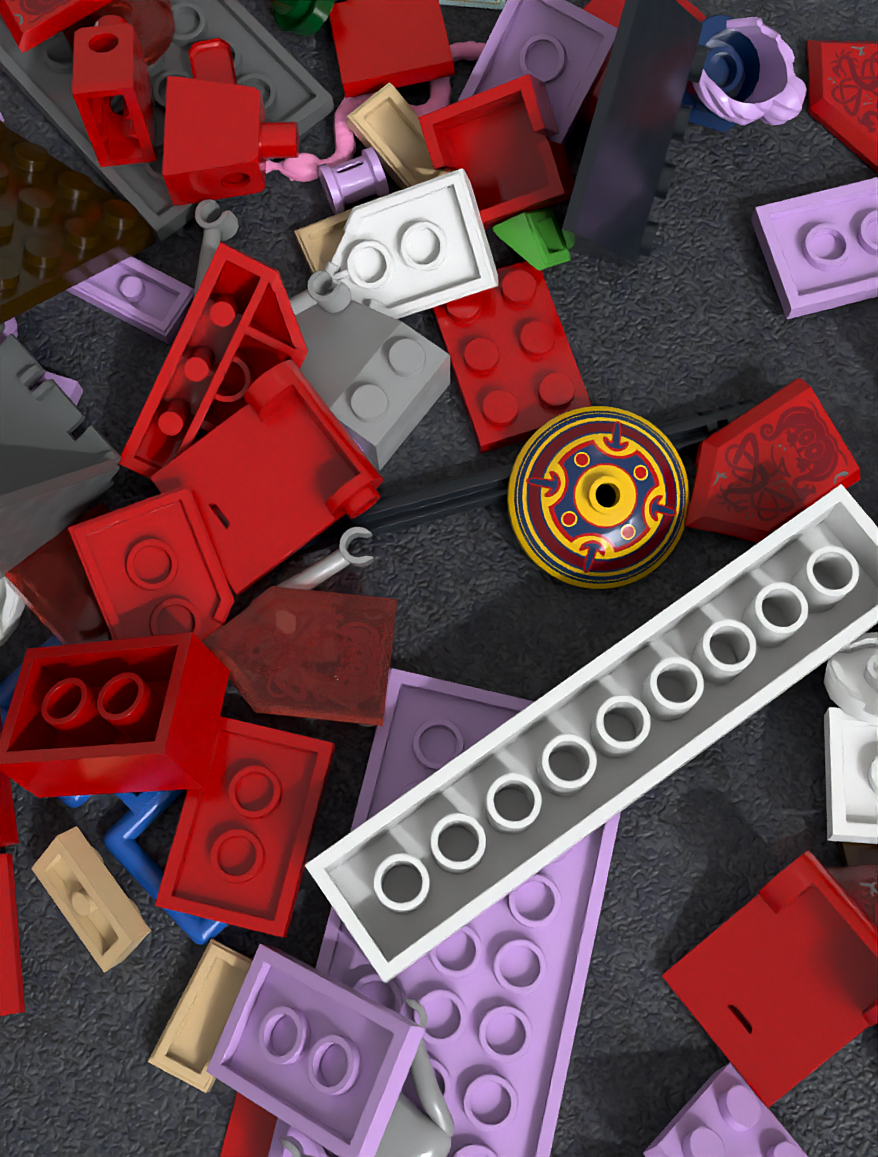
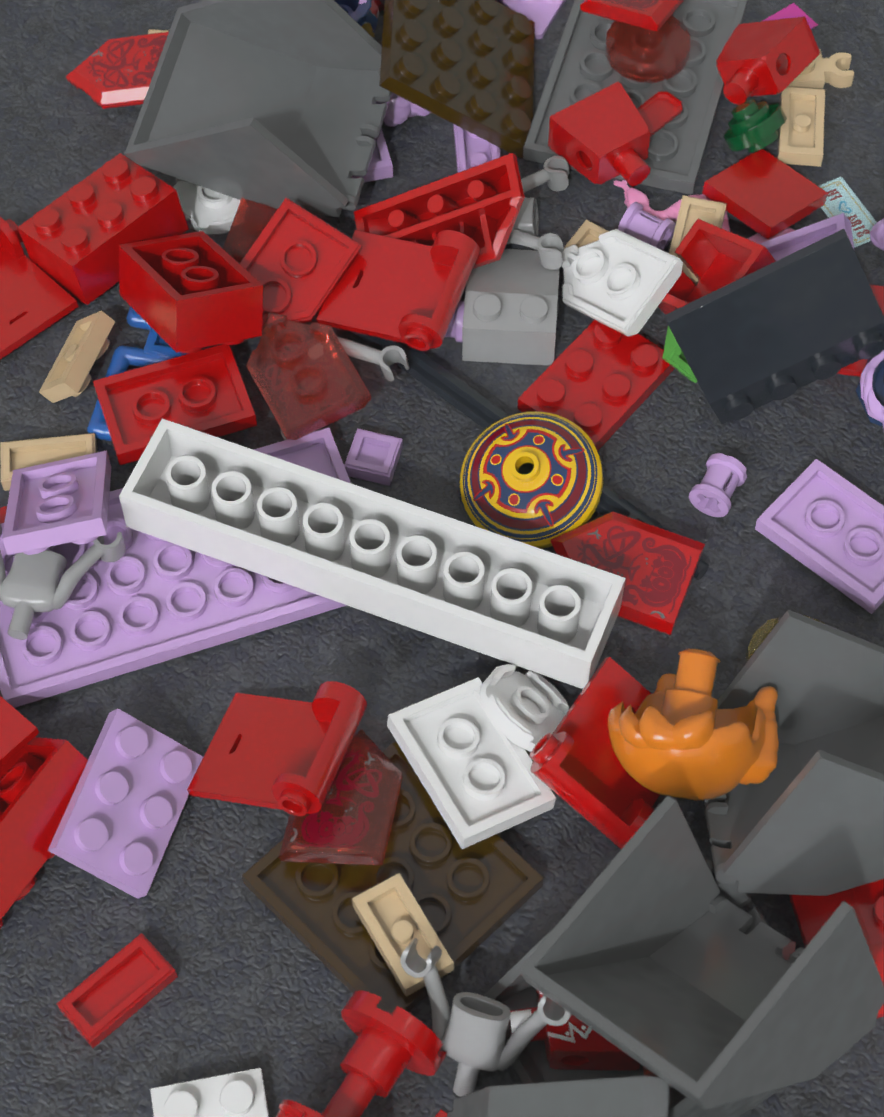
camera: 55 degrees right, 15 degrees down
(110, 64) = (587, 60): red torso -> none
(448, 641) = (373, 456): none -> lavender tile
(721, 319) = (718, 485): none -> lavender bush

